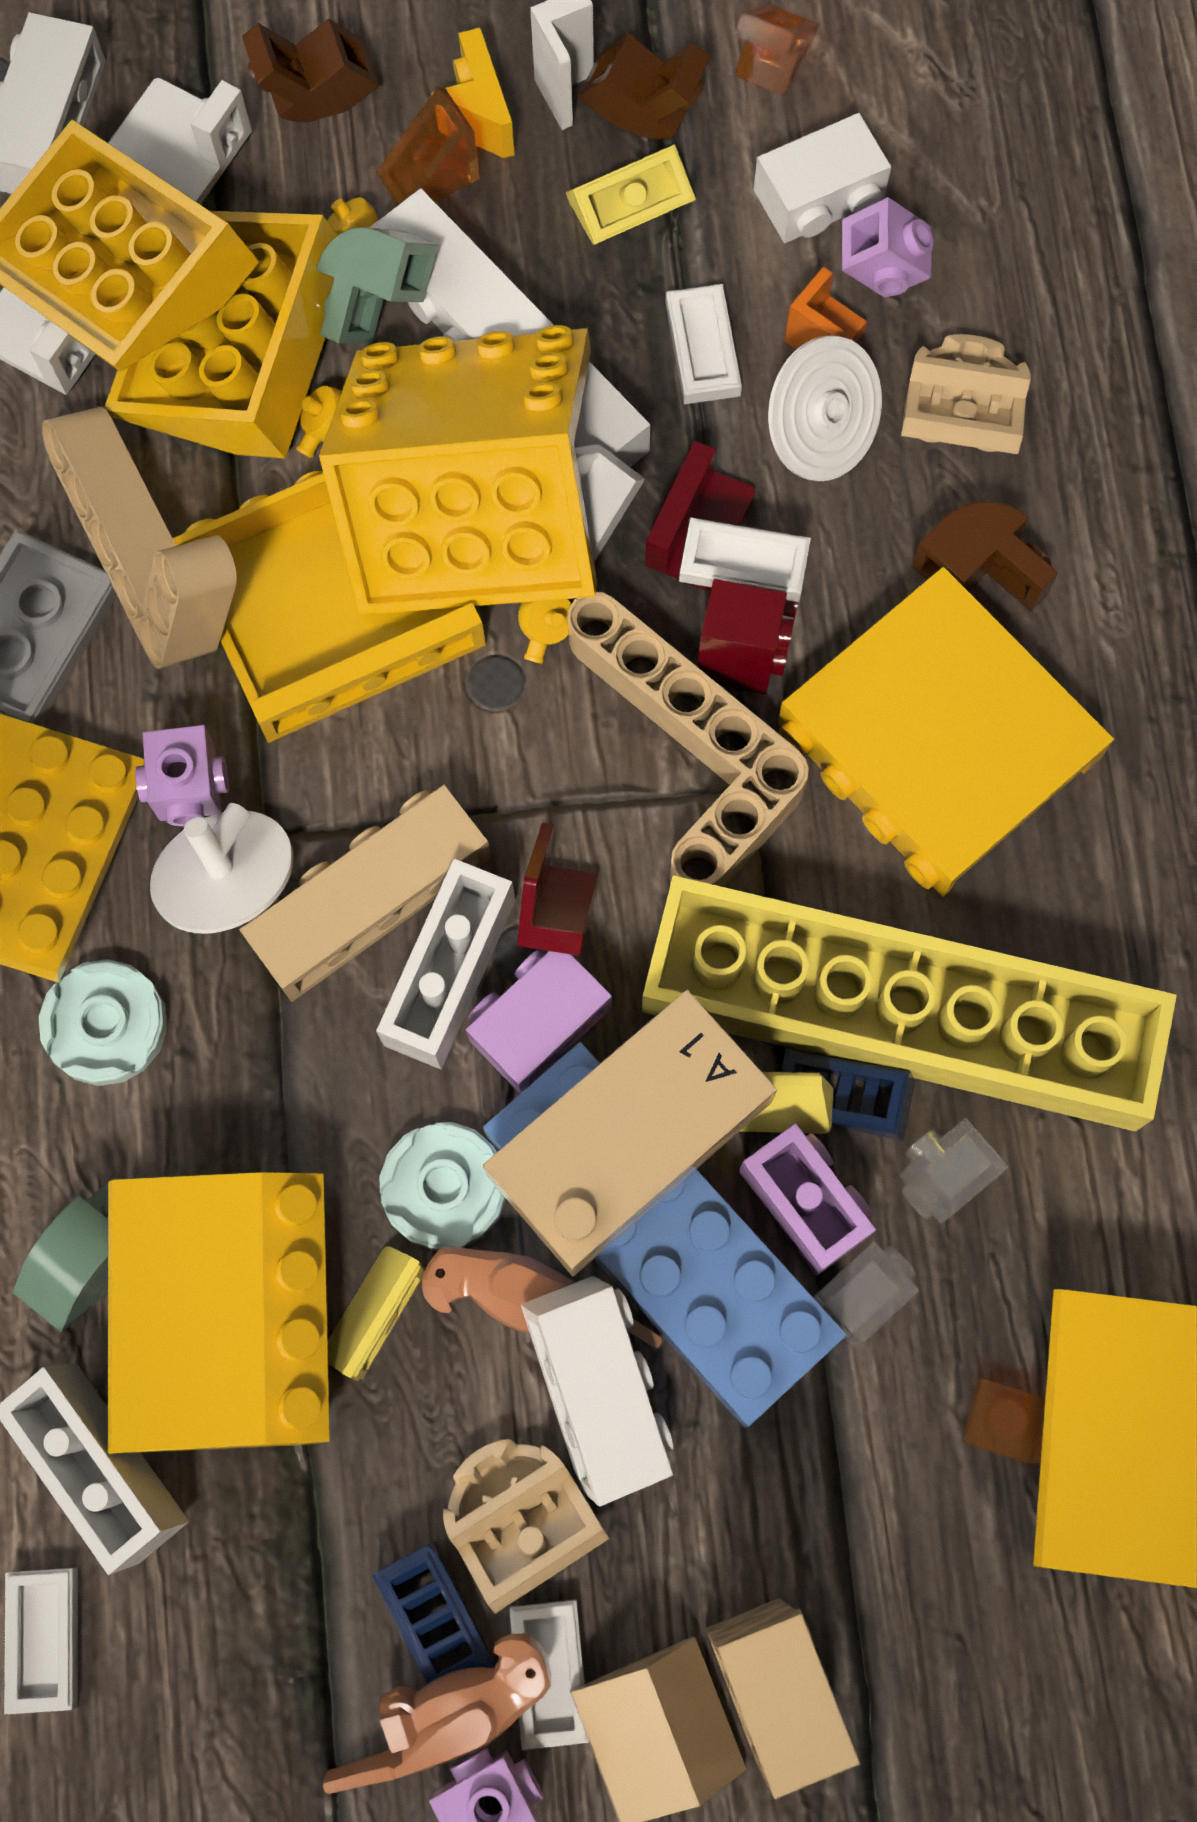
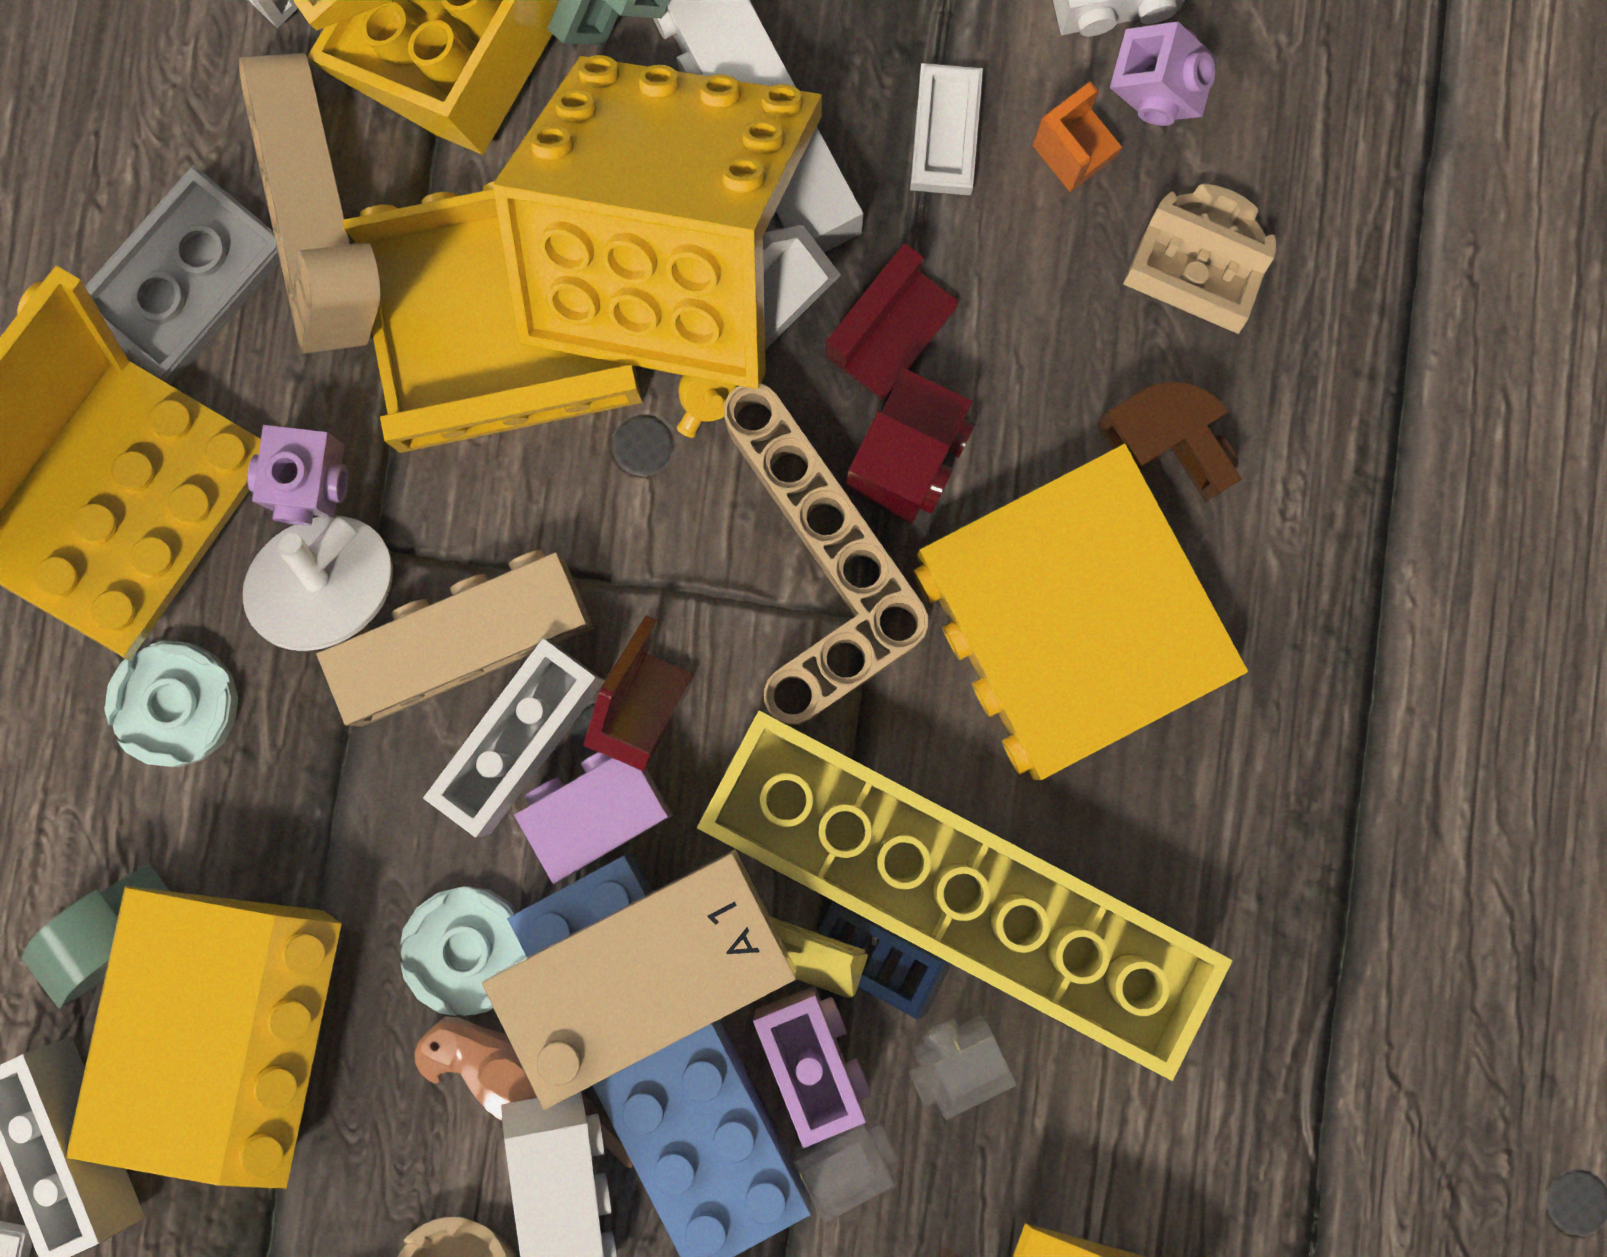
camera: 15 degrees right, 10 degrees up
(316, 418) = (523, 114): yellow piece -> none
(373, 1312) = (365, 1061): light yellow slope -> none
(744, 557) = (920, 388): white tile -> none
(825, 408) = (1049, 238): white shield -> none

